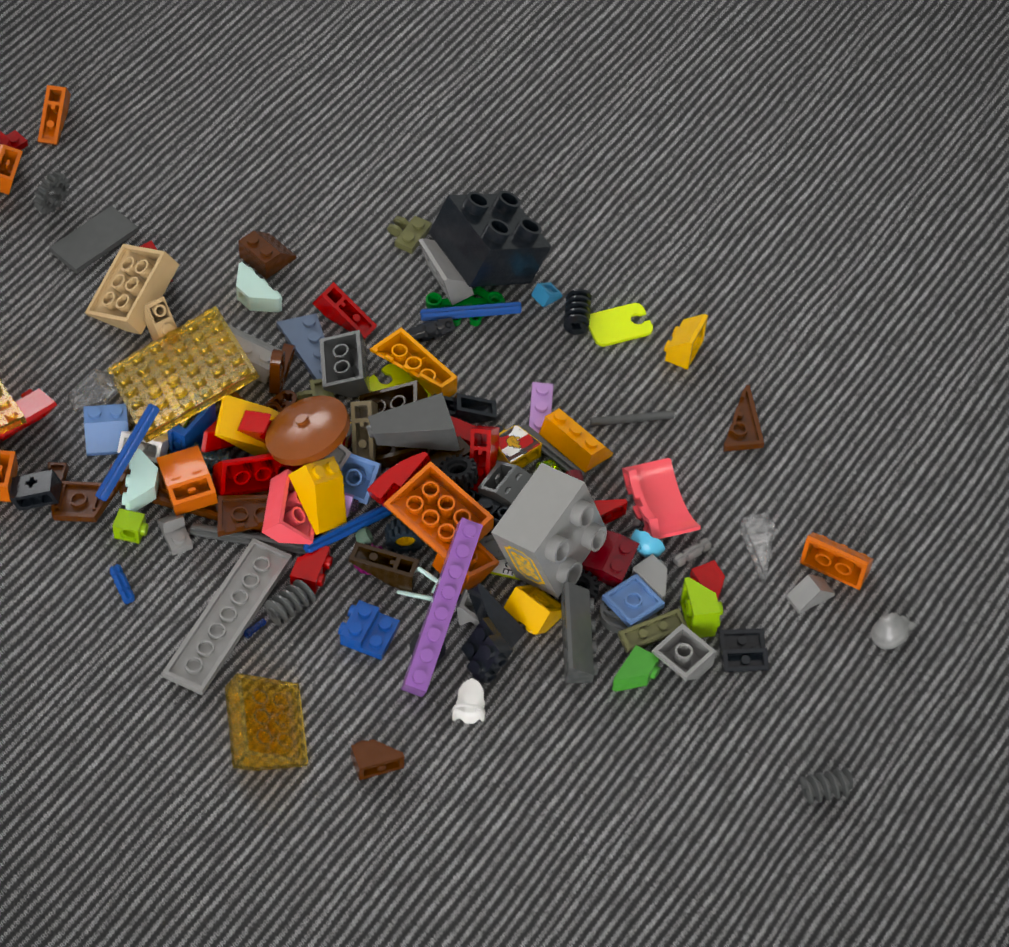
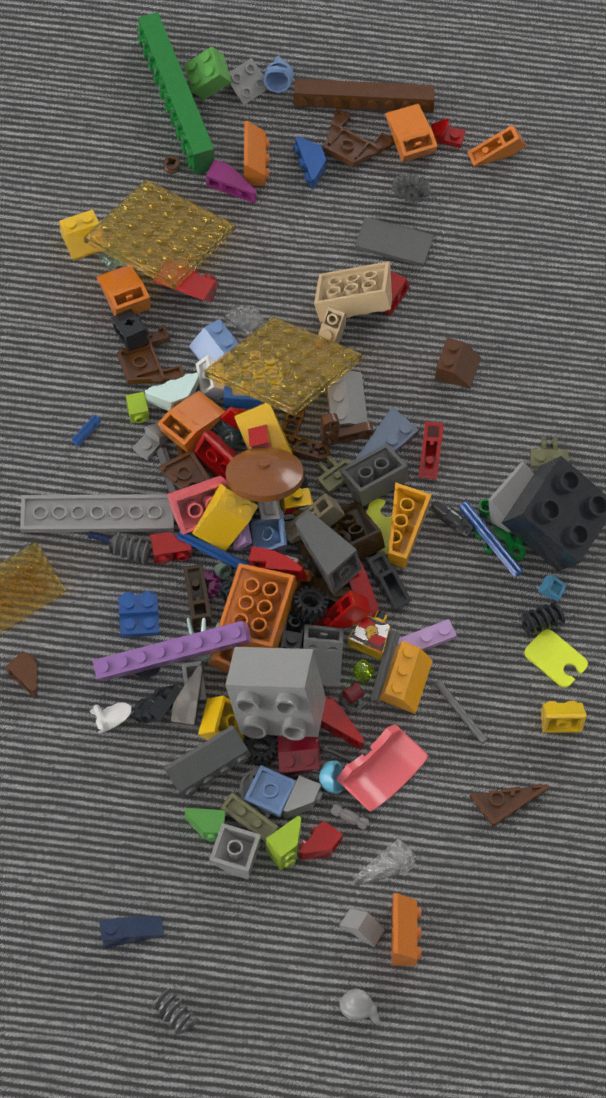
camera: 65 degrees right, 10 degrees up
(127, 452) = (185, 367): blue axle -> none
(255, 292) = (412, 374): light aqua slope -> none
(715, 791) = (130, 930): none -> dark blue slope
(743, 650) = (274, 897): black slope -> none

